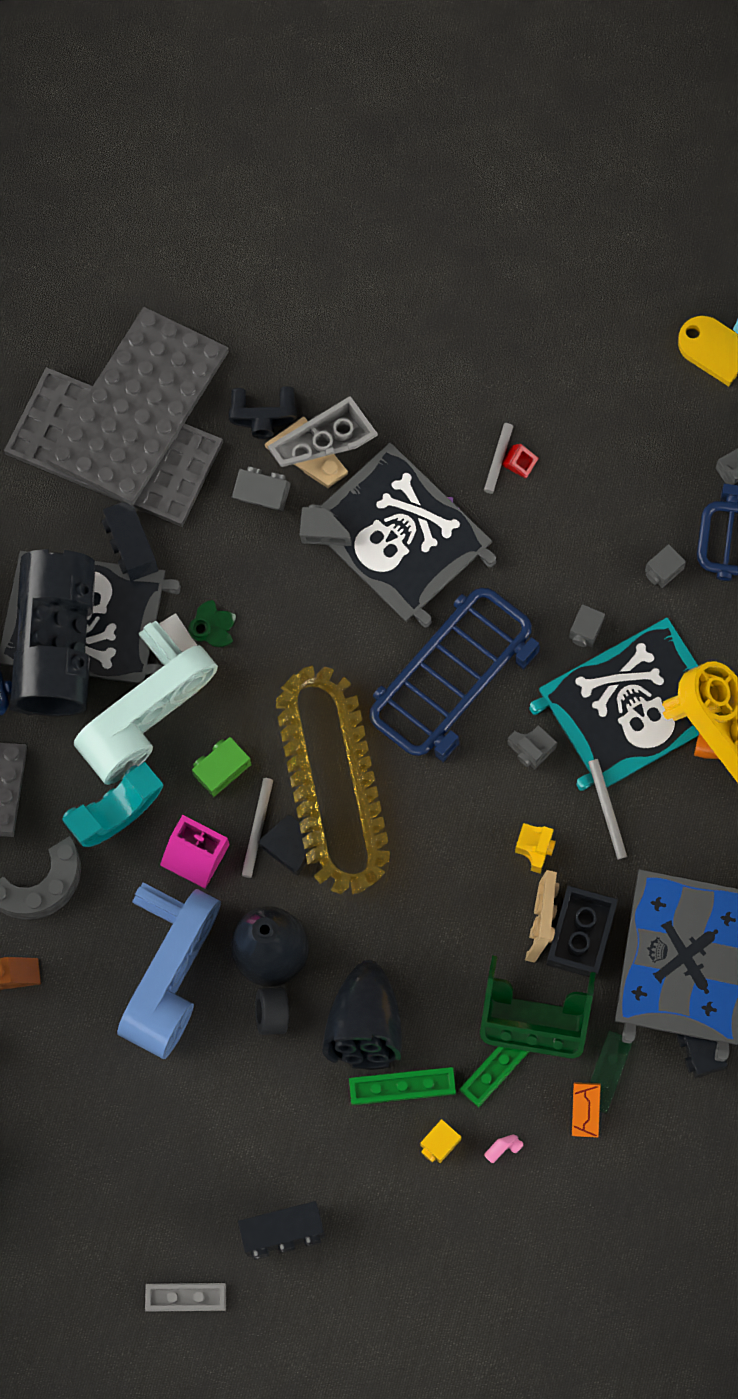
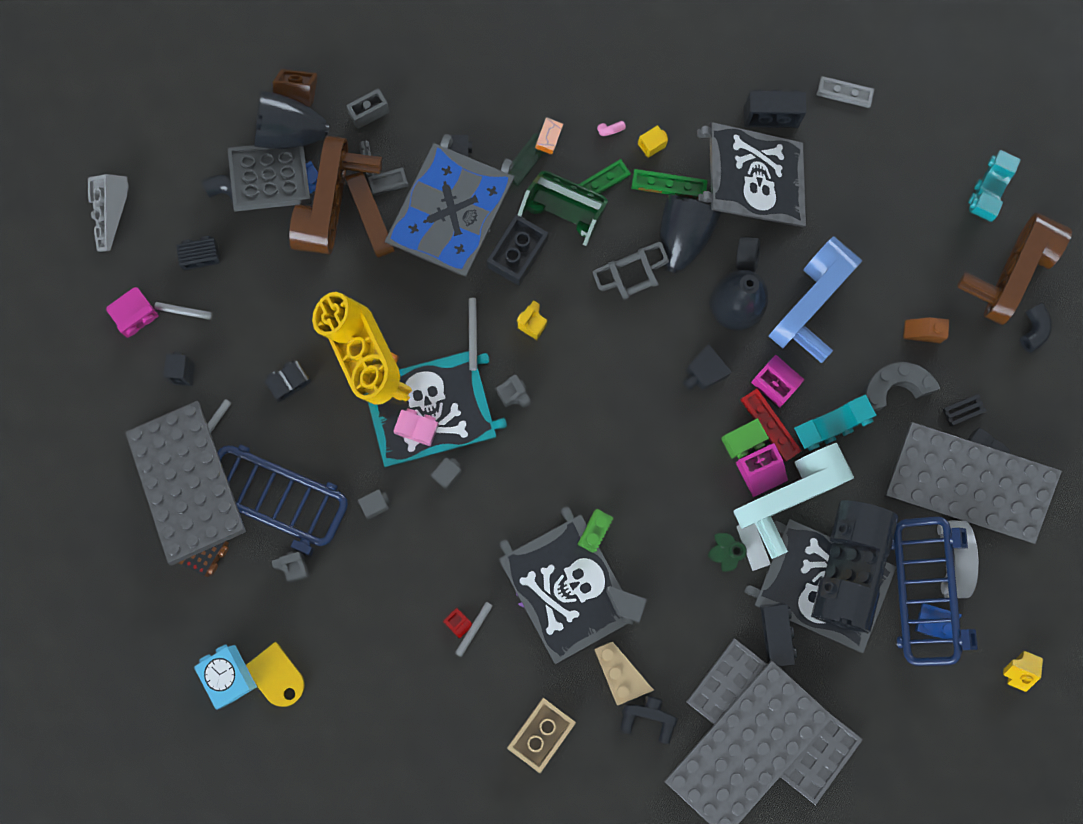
camera: 175 degrees left, 5 degrees up
(191, 732) = (763, 470): none -> dark pink slope
(193, 794) = (775, 430): none -> red plate
(257, 828) = (727, 390): light grey bar -> none
(261, 489) = (666, 649): dark grey brick -> none
(286, 1117) = (755, 175): none -> flag
(288, 699) = (688, 334): clear yellow piece -> none
(329, 433) = (604, 677): light grey wedge -> none
(382, 603) = (595, 530): none -> bright green brick
(385, 359) = (541, 735): none -> tan brick
(399, 947) = (641, 254): none -> dark grey bar
(446, 744) = (581, 418): dark blue bar -> none
(546, 911) = (538, 269): tan wing -> none
(642, 669) = (416, 427): none -> bright pink brick

